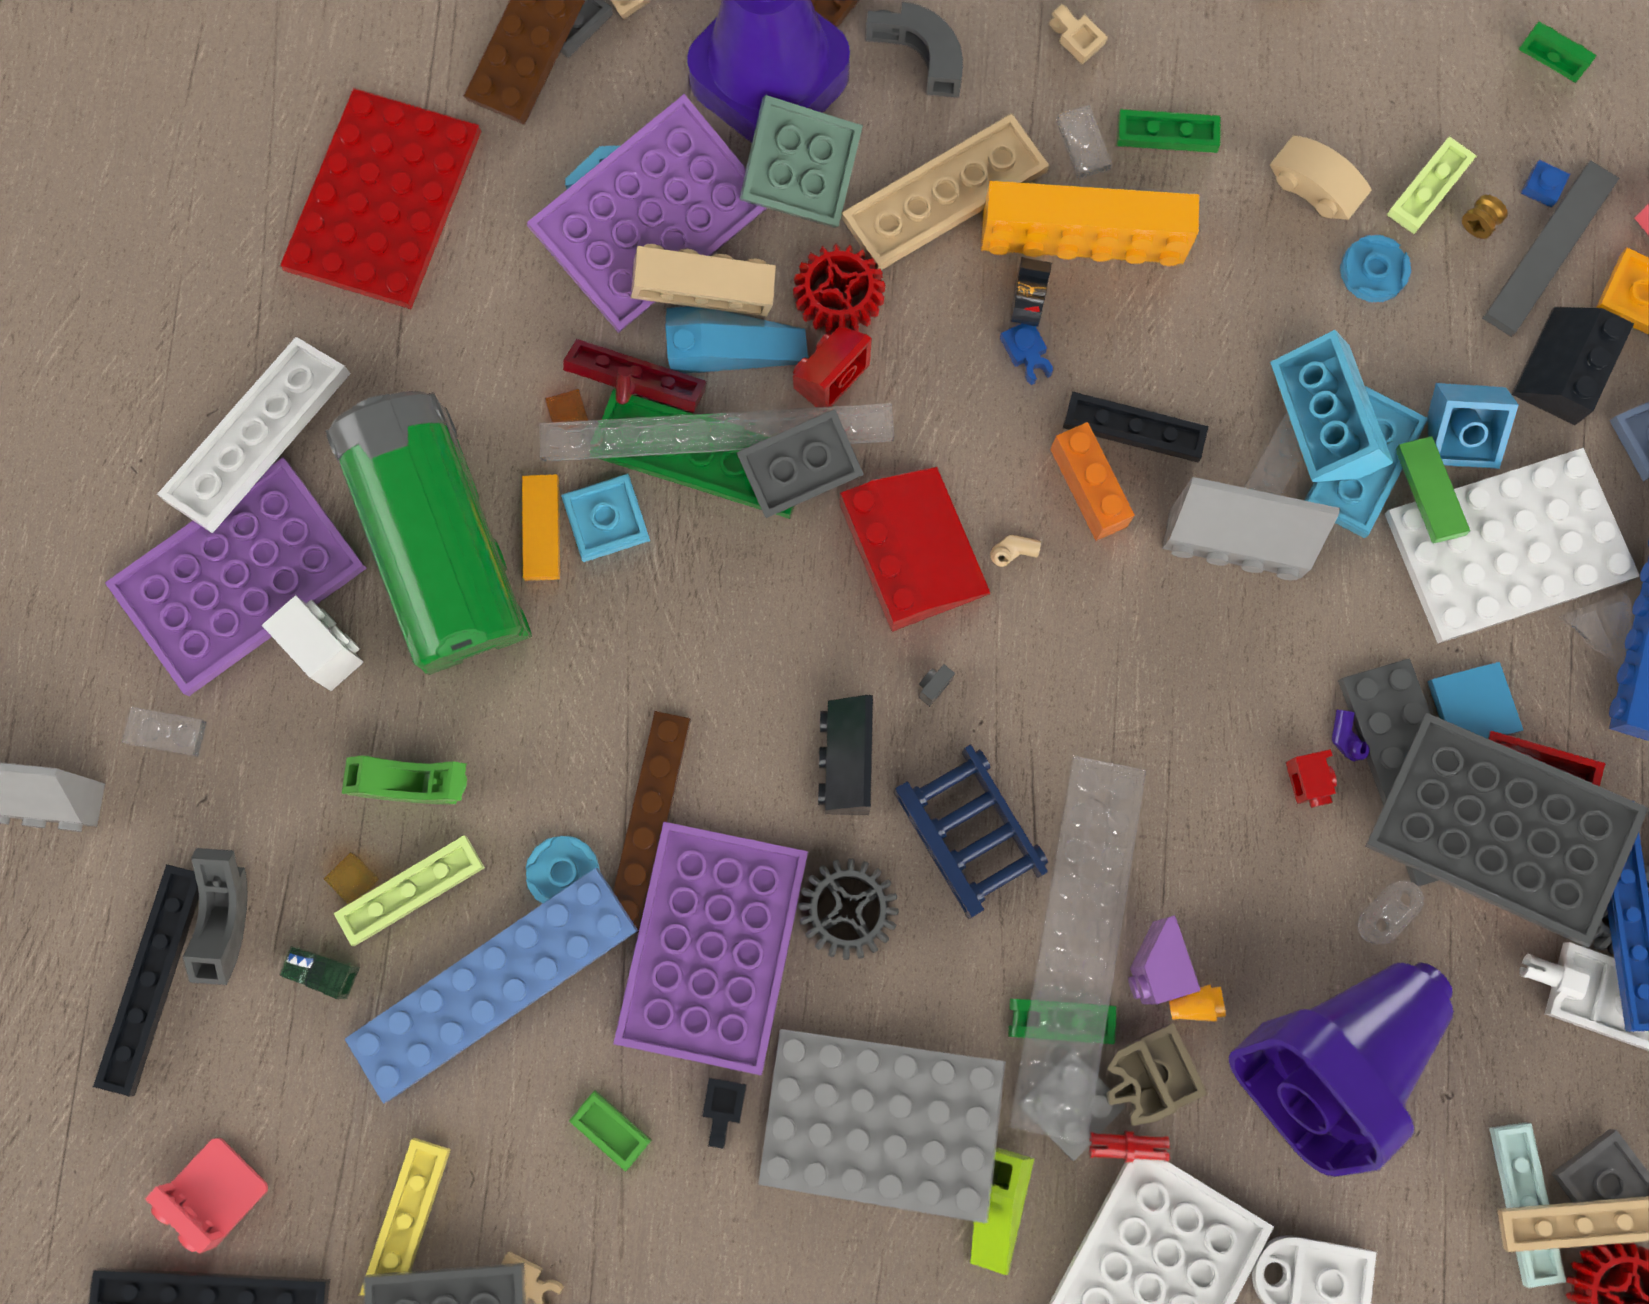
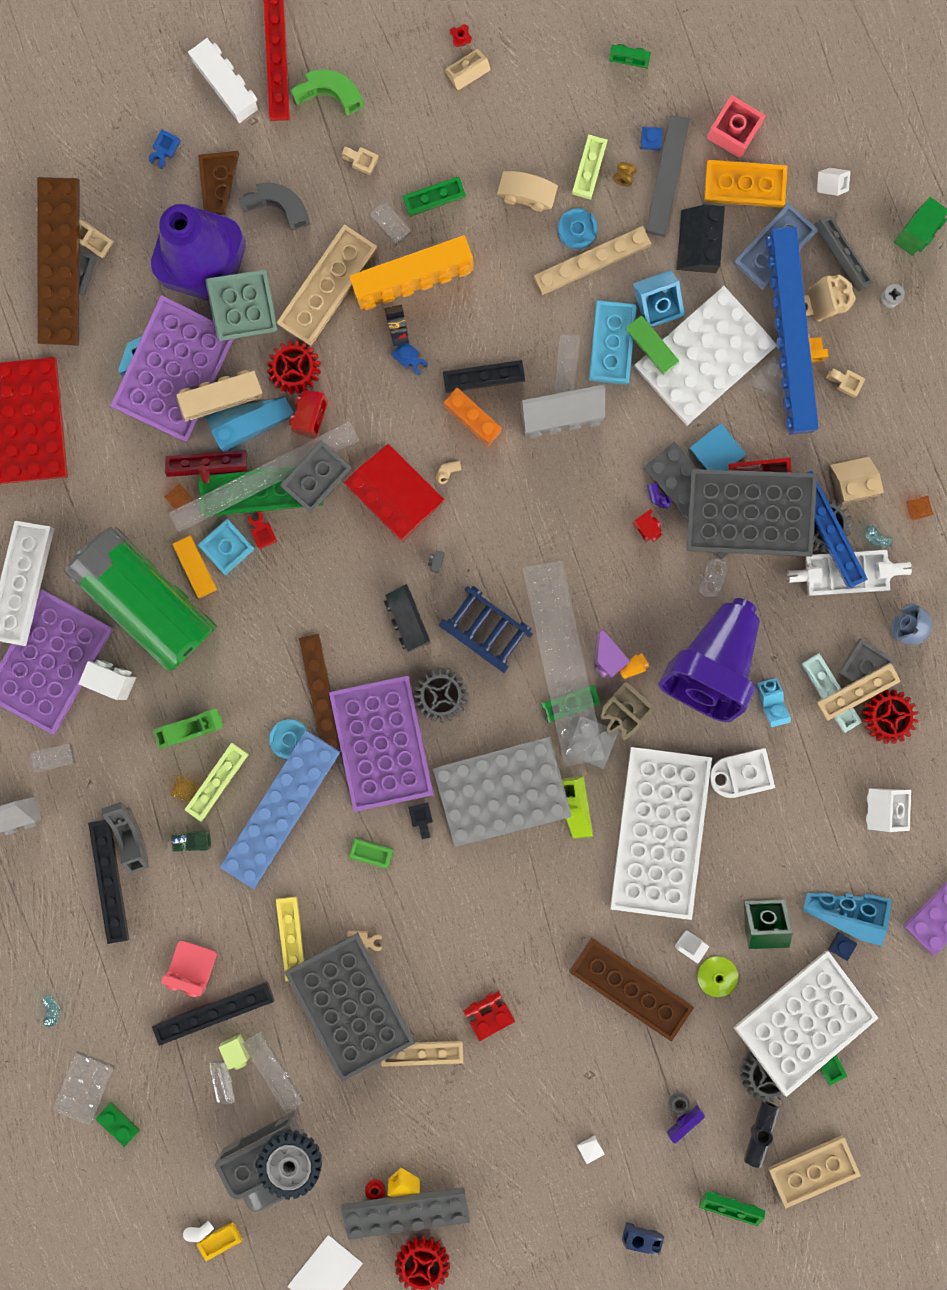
camera: 20 degrees left, 10 degrees up
(673, 520) = (263, 533): none -> red plate
(1129, 1146) = (626, 750): red pin -> none
(1331, 410) = (582, 324): medium azure slope -> none
(1383, 324) = (592, 260): none -> tan plate
(1416, 1178) = (773, 702): none -> medium azure slope

